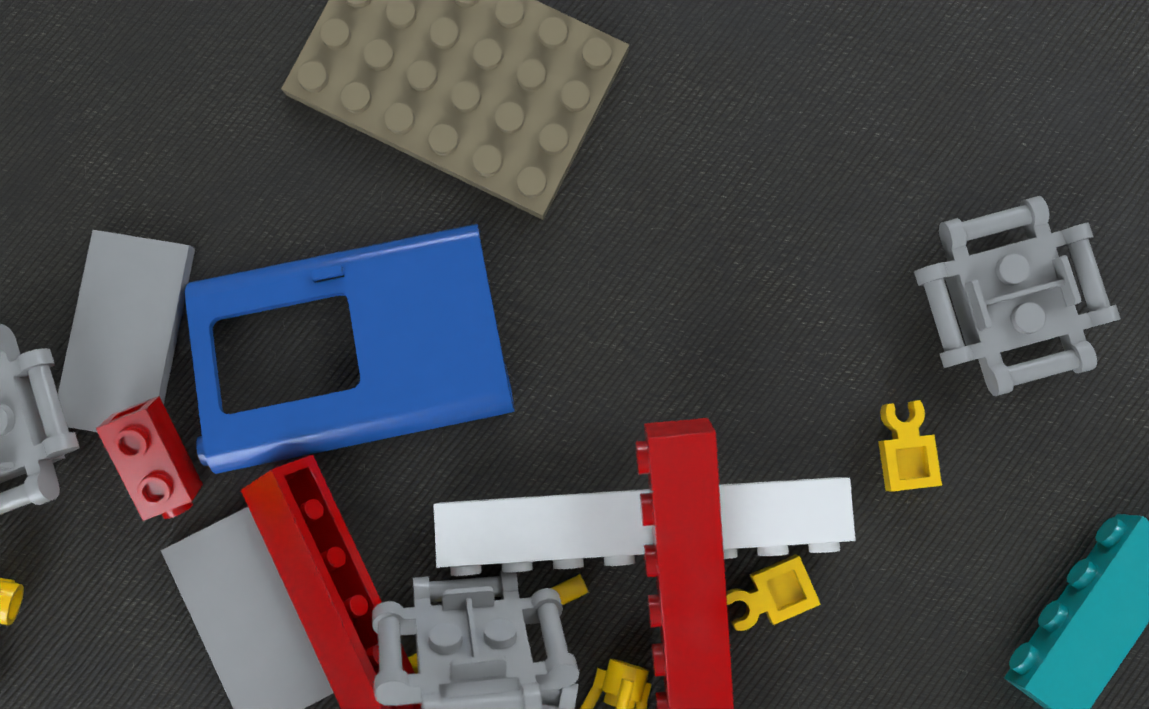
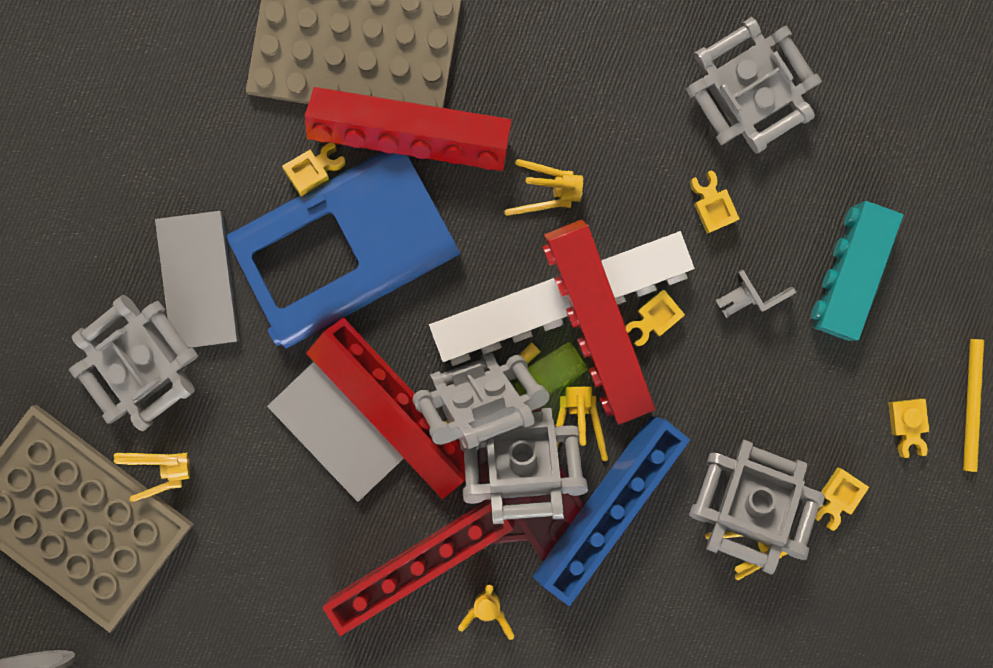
camera: 20 degrees left, 5 degrees up
(151, 459) = (244, 350): red brick -> none
(334, 228) = (309, 172): none -> yellow plate
(493, 208) = (407, 128): none -> red brick
(601, 629) = (555, 369): none -> clear neon green slope
(697, 358) = (566, 186): none -> yellow plant
(922, 602) = (746, 295): none -> light grey bracket

